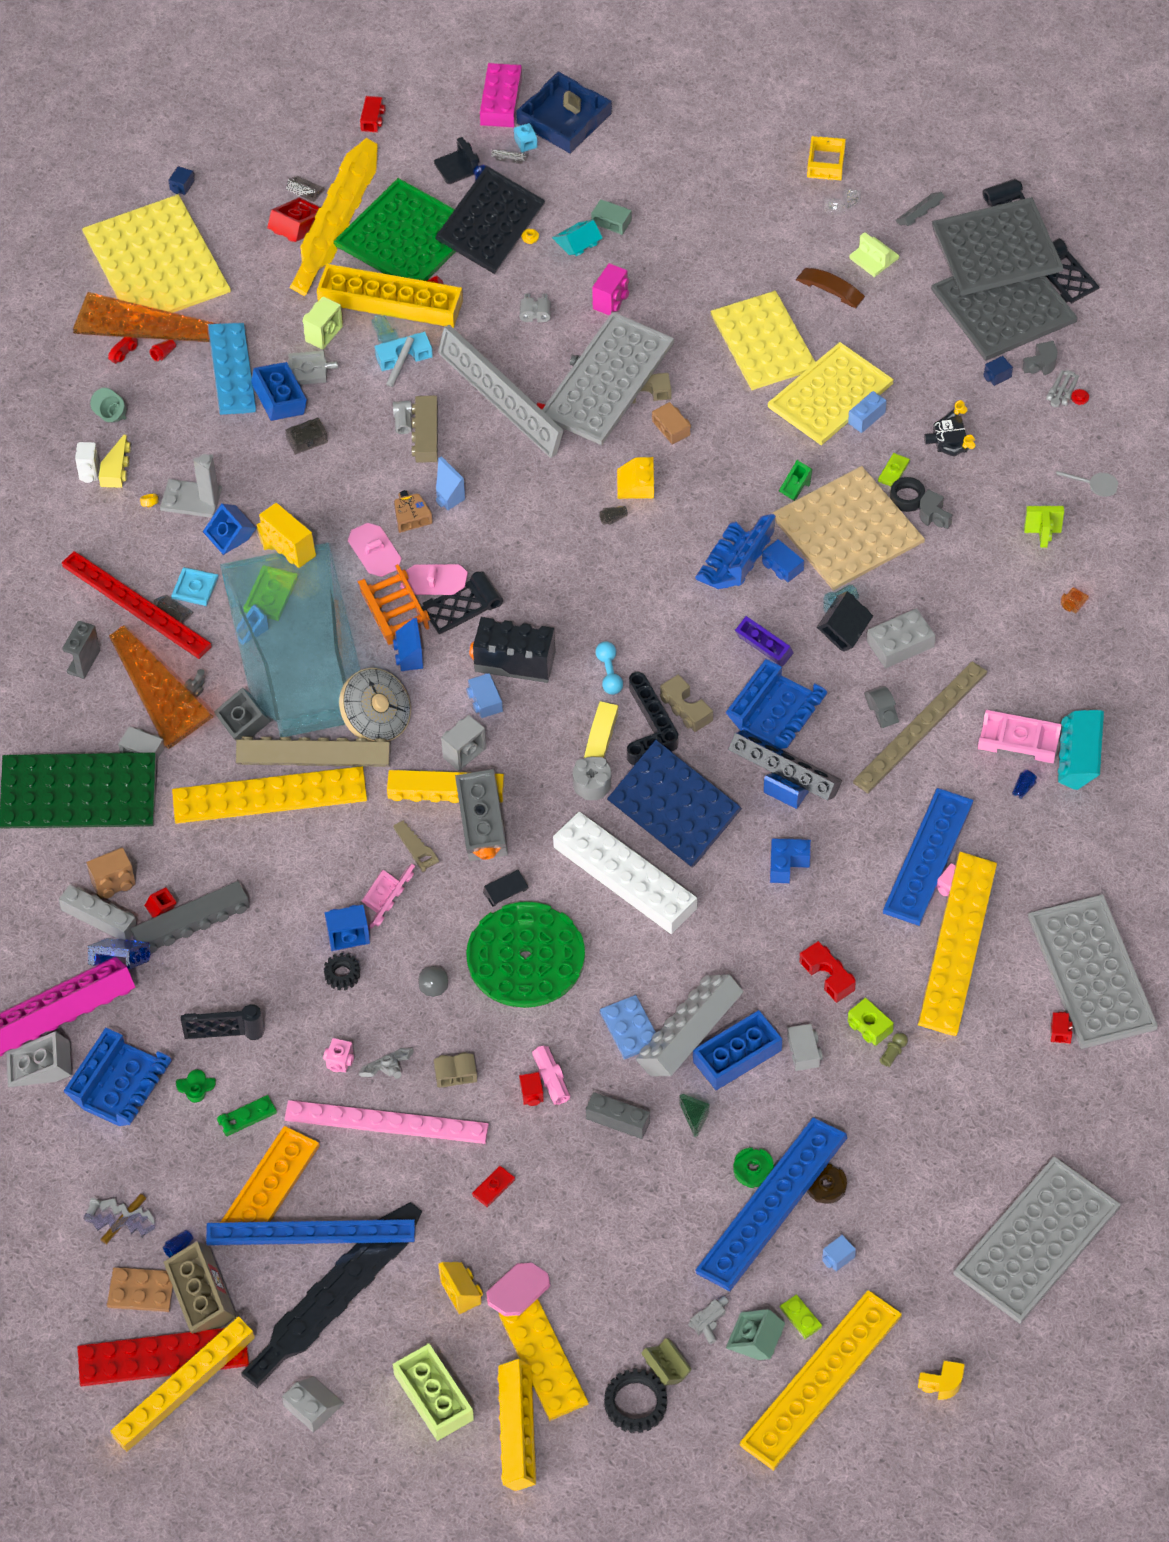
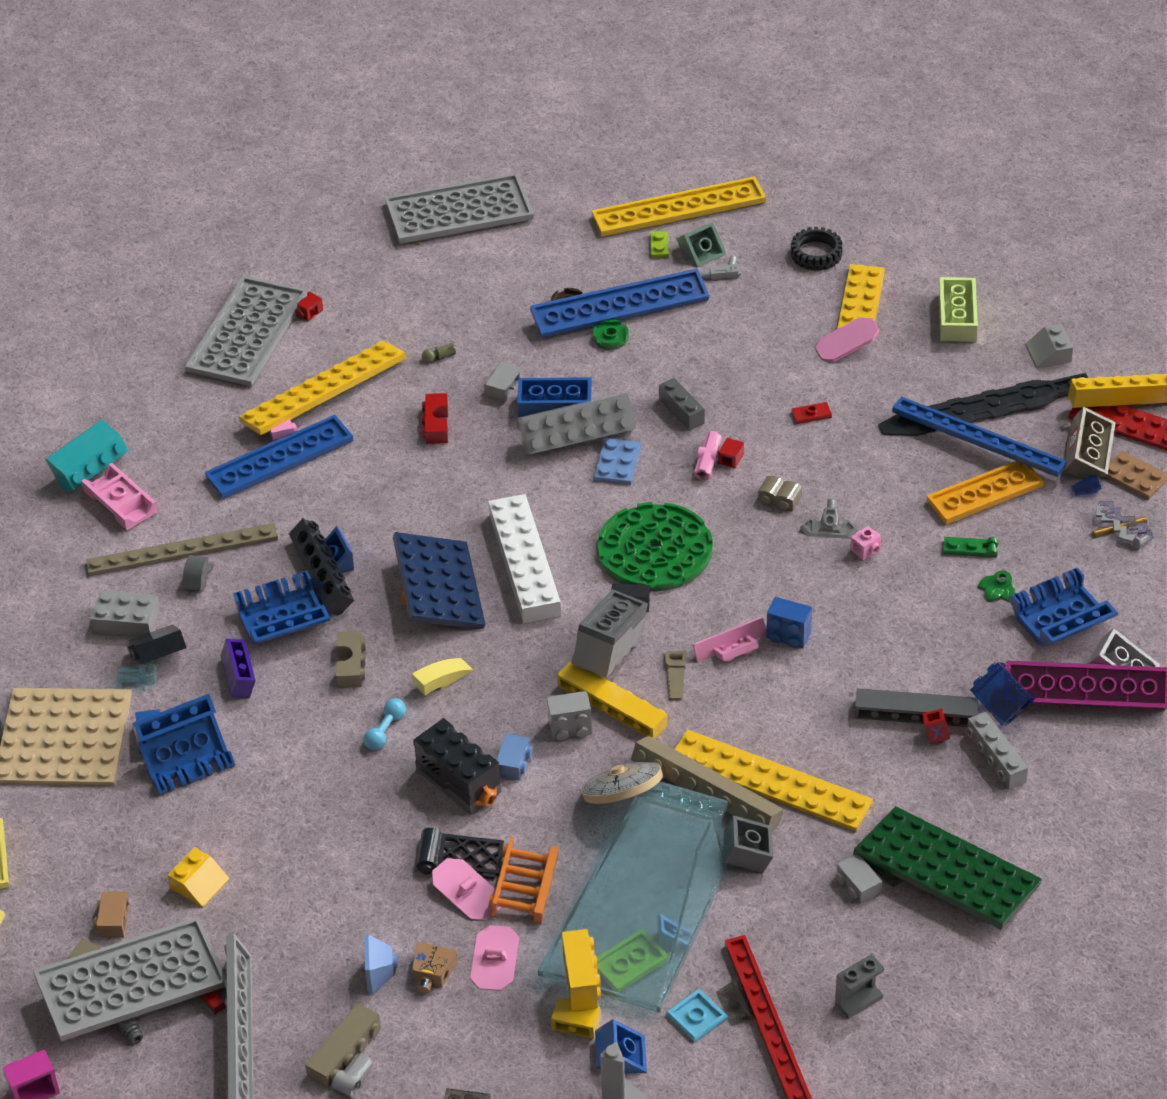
camera: 145 degrees left, 10 degrees down
(111, 873) = (965, 768): medium nougat brick -> none
(166, 699) = (807, 904): clear orange wing -> none
(196, 684) = (774, 907): dark grey piece -> none
(247, 1021) = (925, 597): black piece -> none
(342, 961) = (821, 598): black tyre -> none
(386, 1122) = (862, 491): bright pink plate -> none
(408, 647) = (544, 827): blue slope -> none
(433, 981) = (745, 564): dark grey hair -> none
(459, 1286) = (888, 356): yellow slope -> none
(516, 1425) = (911, 269): yellow brick -> none
(592, 778) = (484, 639): light grey brick -> none
(612, 514) = (250, 859): clear smoke cone -> none
(655, 716) = (392, 641): black beam -> none
(667, 1362) = (777, 257): olive bracket -> none
(694, 1112) = (622, 378): clear green slope -> none
(787, 854) = (388, 506): blue brick -> none
(796, 479) = (63, 790): green slope -> none
(838, 1253) = (601, 259): medium blue brick -> none
(867, 1012) = (439, 373): lime brick -> none
(947, 1384) = (598, 165): yellow brick -> none
(1024, 783) = (153, 466): clear blue cone -> none

